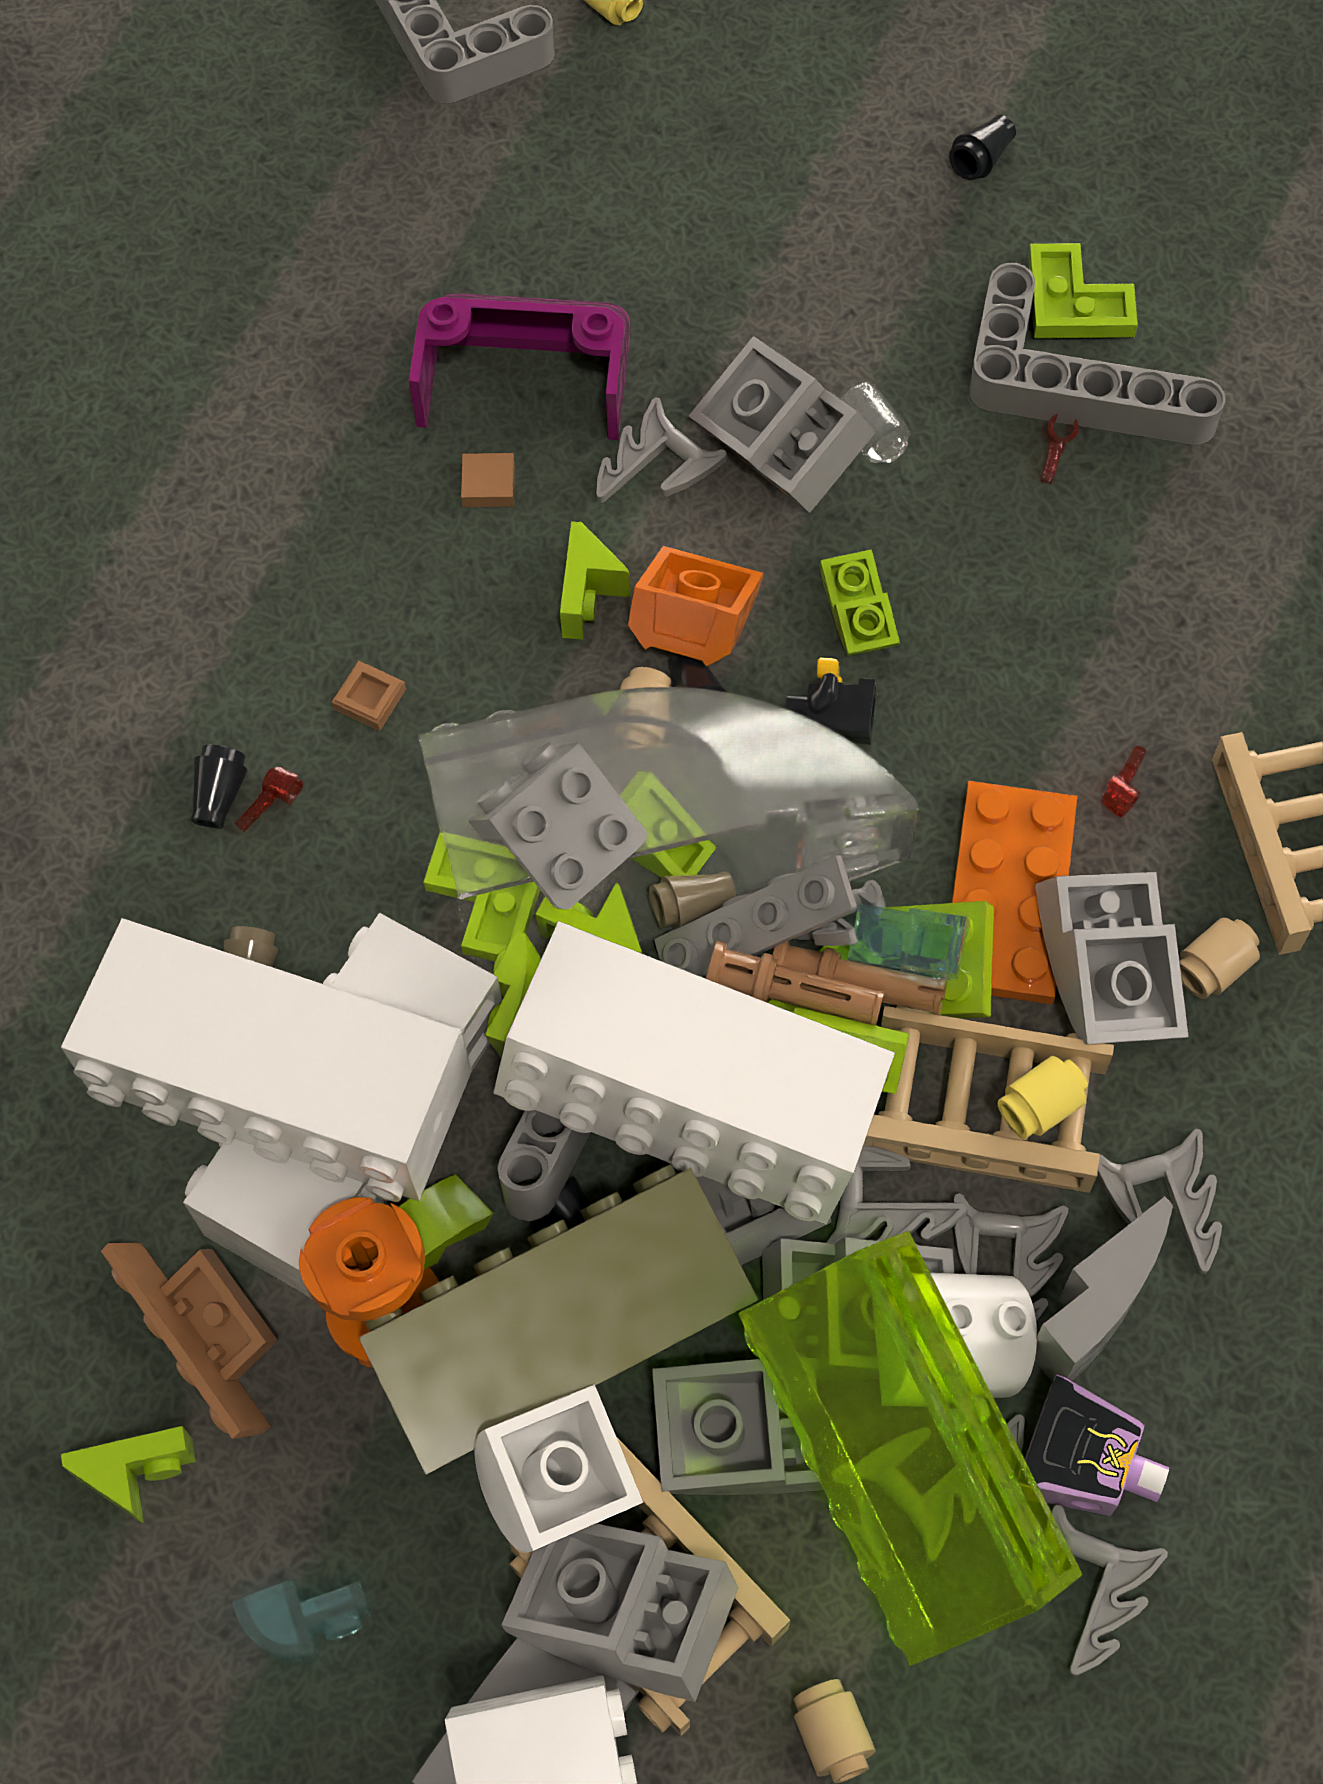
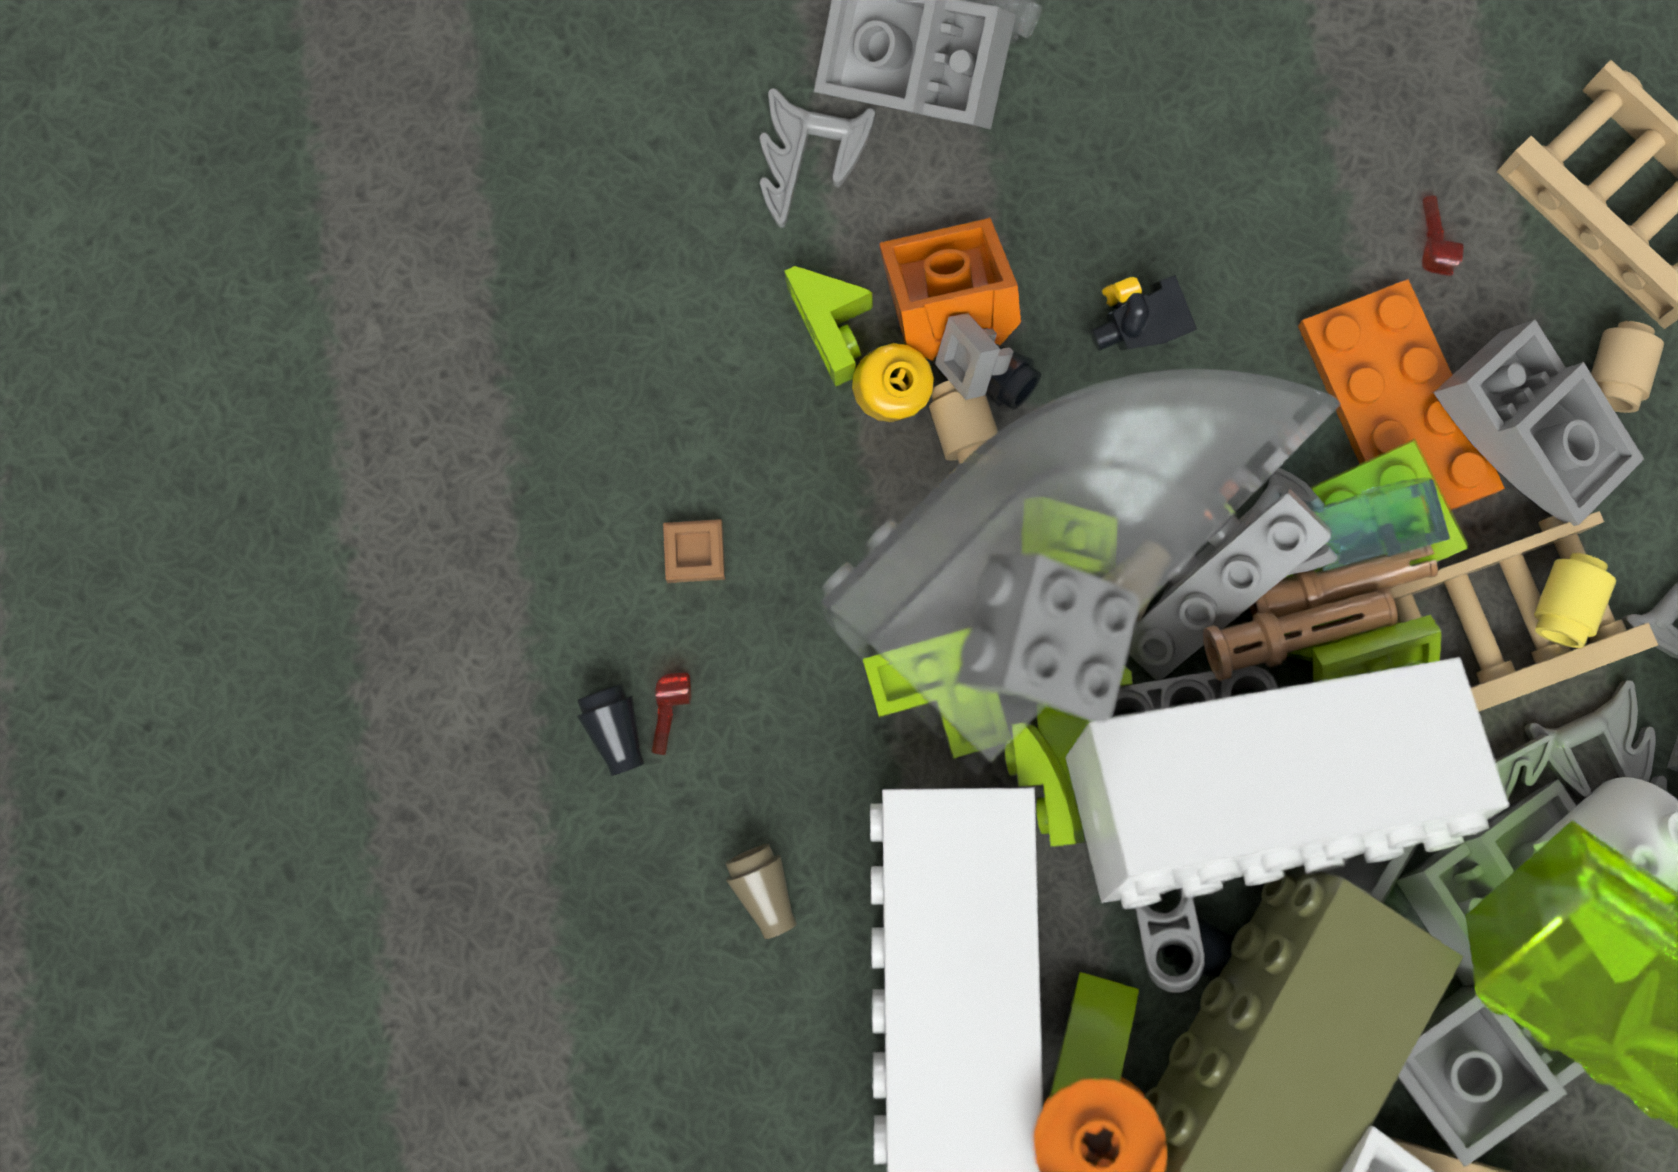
camera: 25 degrees left, 15 degrees up
(268, 1060) = (899, 1023): white brick -> none
(488, 480) = (663, 265): medium nougat tile -> none
(521, 324) = (607, 72): magenta windscreen -> none
(602, 665) = (874, 386): none -> yellow head
(673, 653) = (970, 356): none -> light grey tile
(858, 603) = (1092, 199): lime slope -> none

